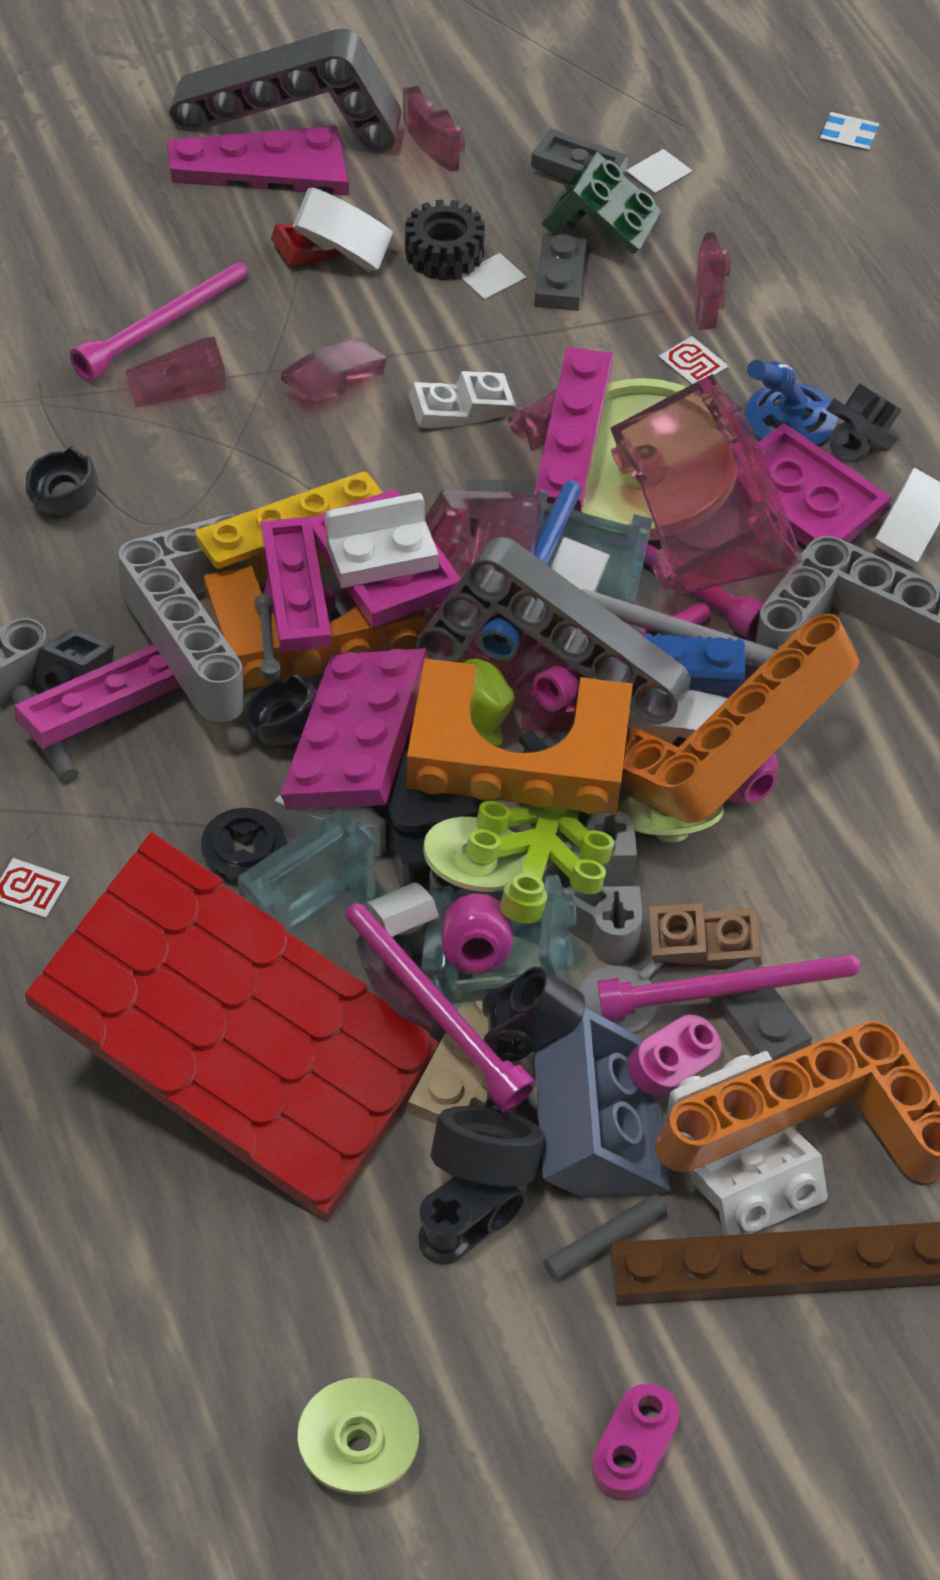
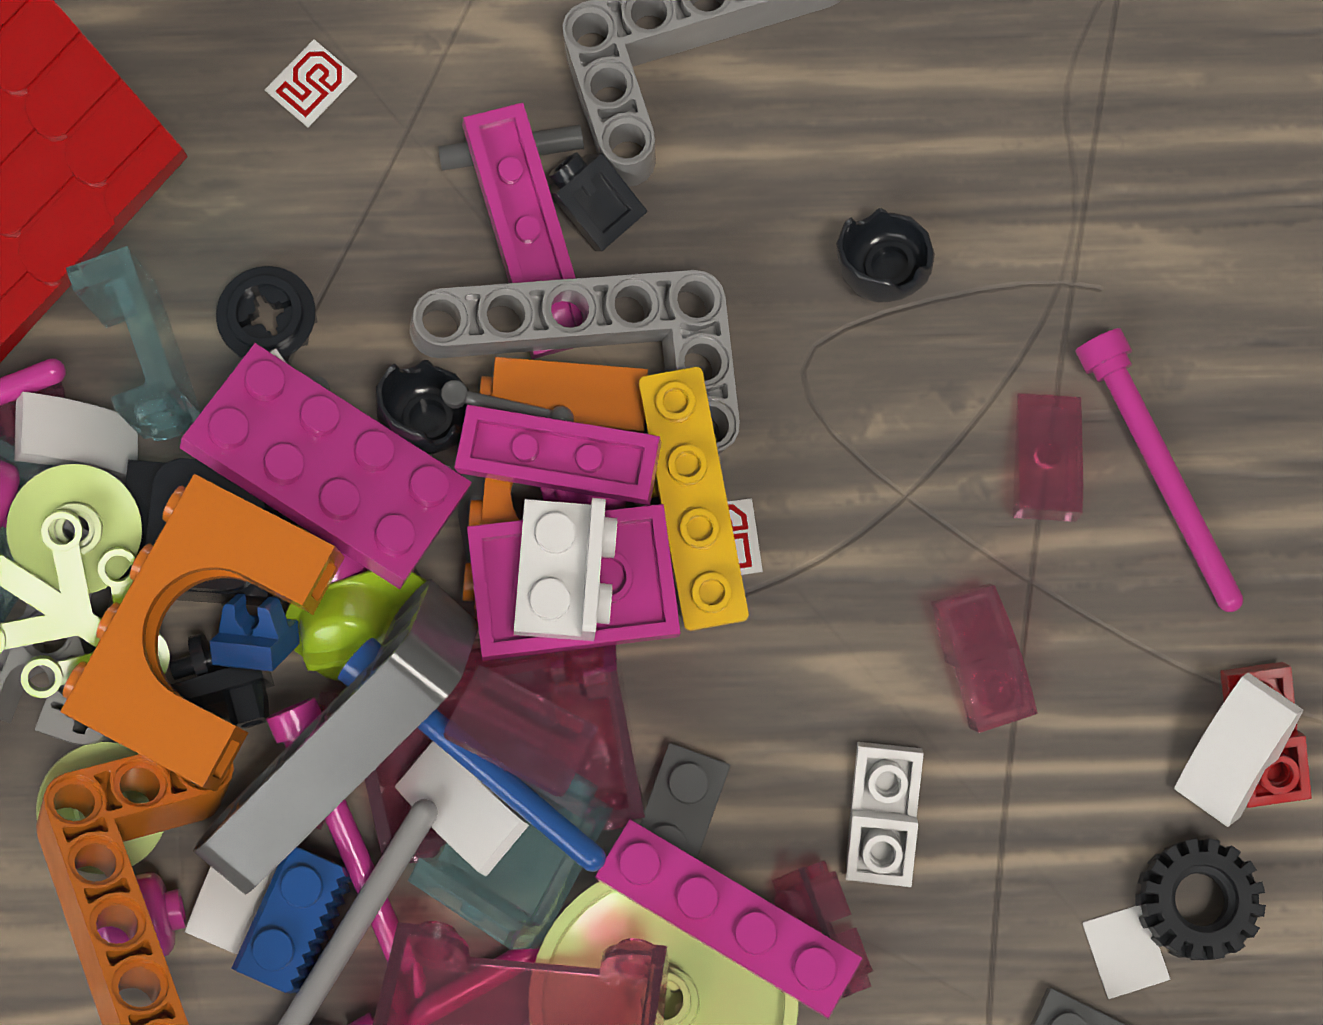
camera: 115 degrees right, 25 degrees up
(508, 730) = (252, 640): none -> blue tile

